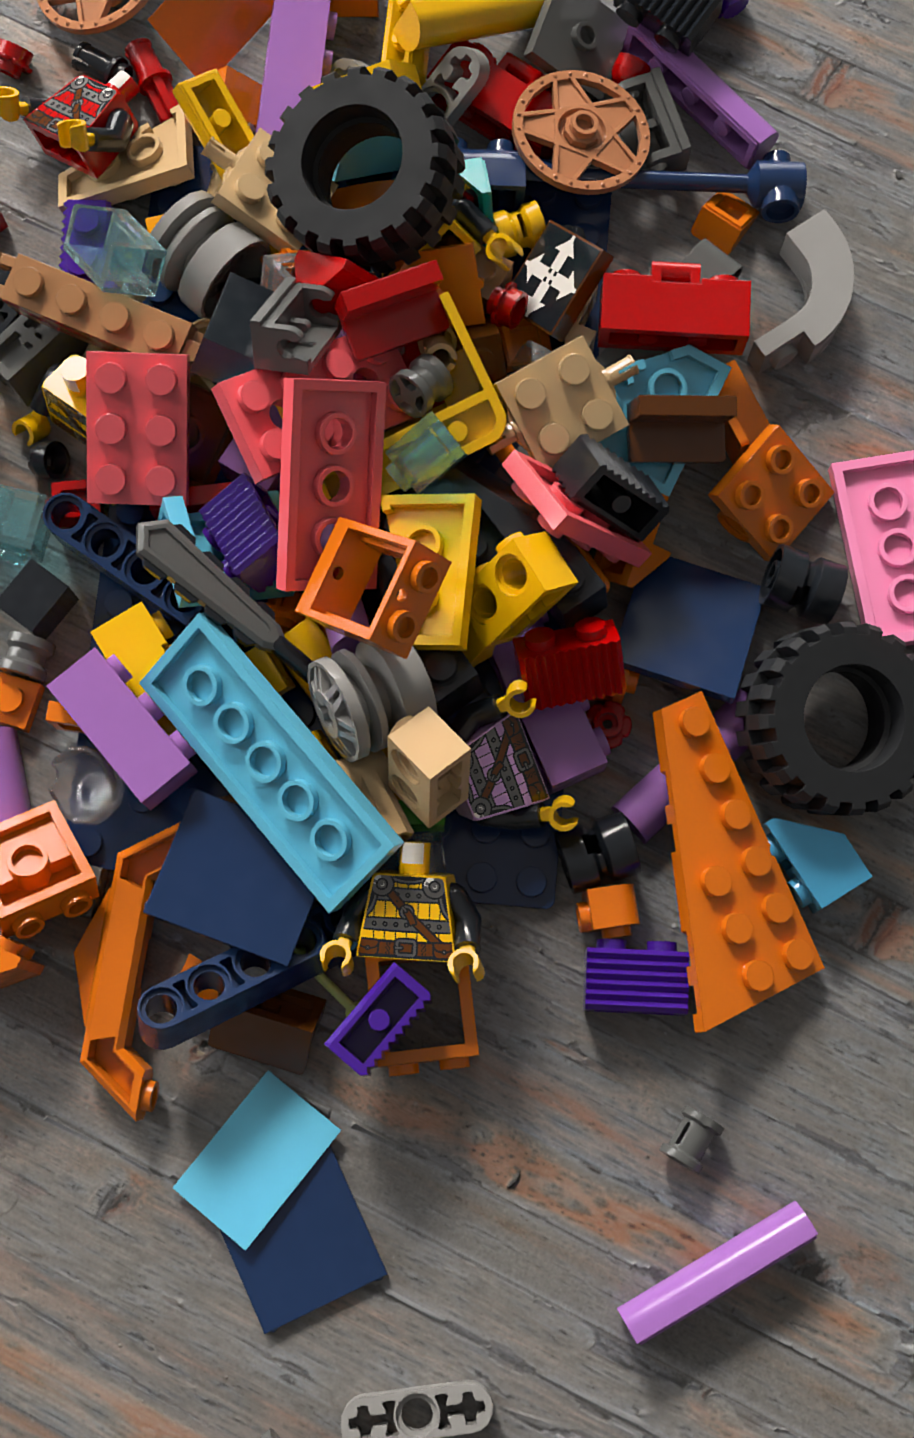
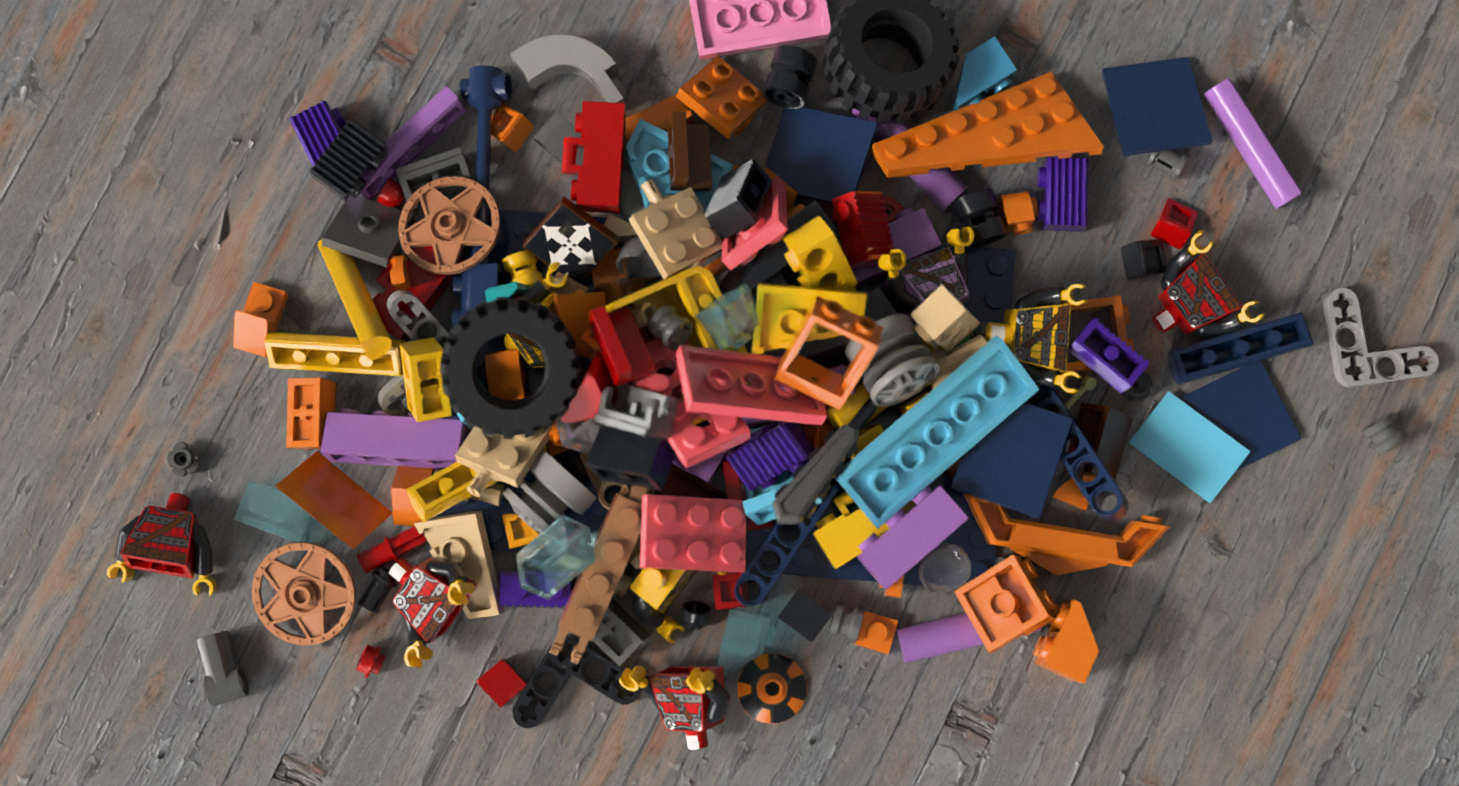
camera: 90 degrees left, 5 degrees up
(342, 1091) = (1142, 391): none -> black plate
(400, 1242) = (1239, 348): none -> dark blue brick
(479, 1179) = (1198, 296): none -> torso
(507, 305) = (591, 276): red plate -> none
(513, 69) = (400, 273): none -> orange tile
(541, 1103) = (1143, 259): none -> black slope
(595, 1150) = (1174, 224): none -> red slope
(772, 1125) = (1156, 106): none -> dark blue piece

